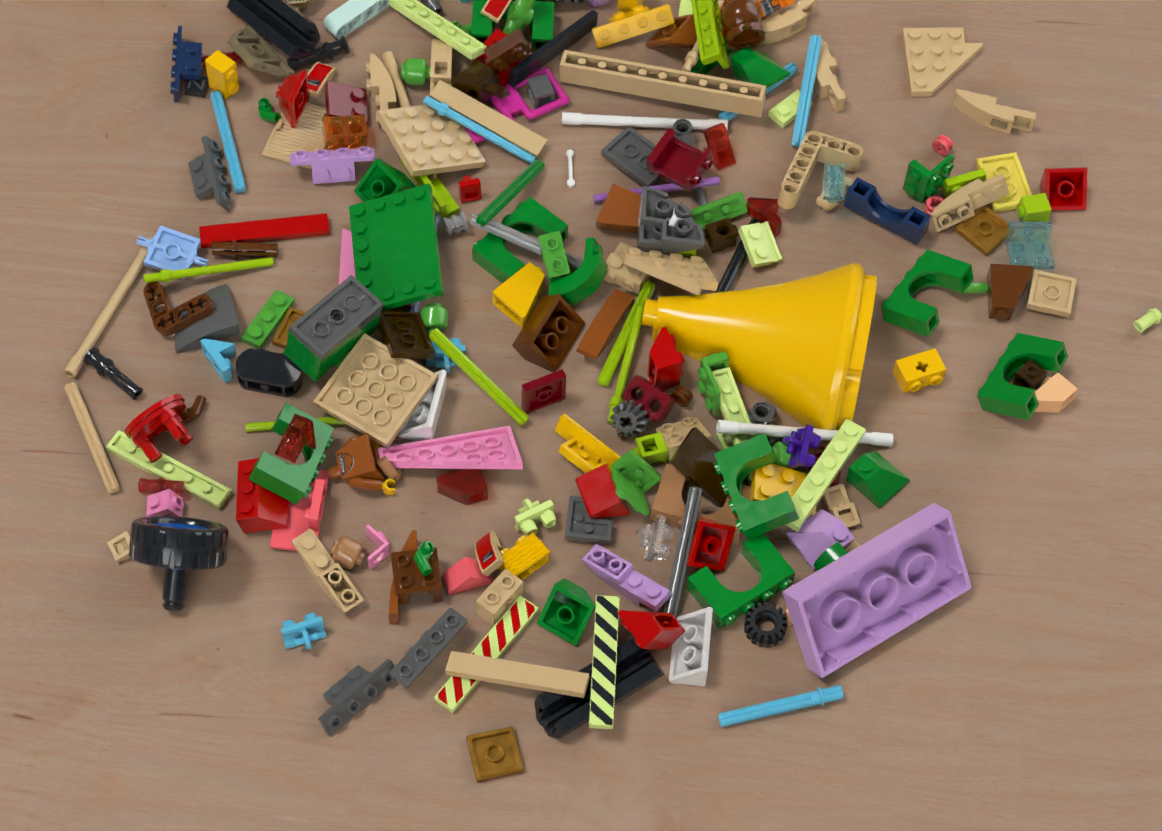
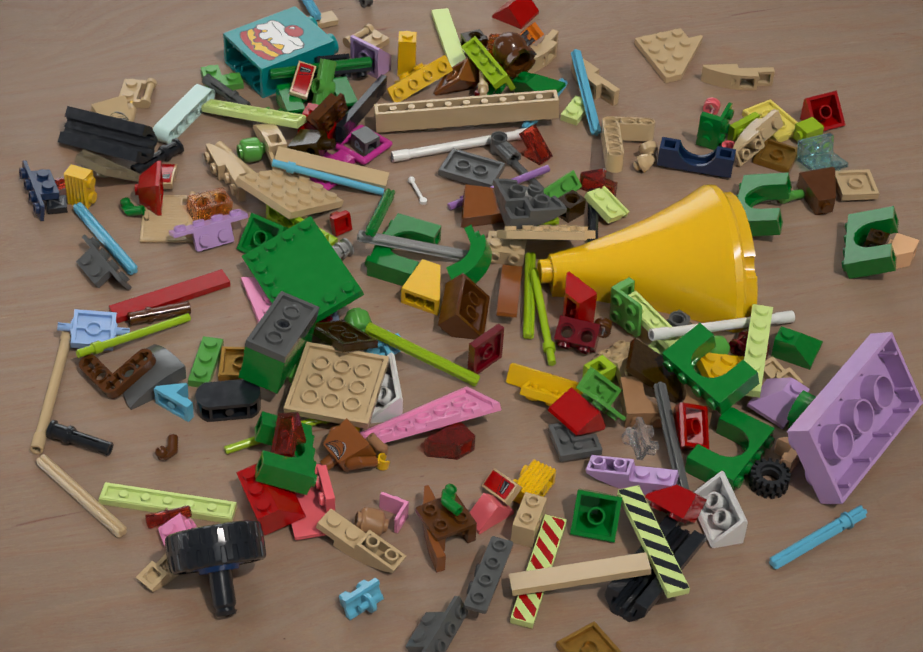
camera: 20 degrees left, 15 degrees down
(156, 419) = (148, 455): red piece -> none
(345, 100) = (196, 182): plate -> none
(532, 514) = (523, 447): yellowish green hips -> none
(553, 255) = (442, 246): bright green brick -> none
(621, 420) = (566, 346): dark grey gear -> none
(678, 161) = (511, 160): dark red panel -> none
(798, 446) = (727, 331): dark purple hips -> none
(834, 183) = (647, 144): clear light blue hips -> none
(919, 370) = (786, 261): yellow brick -> none

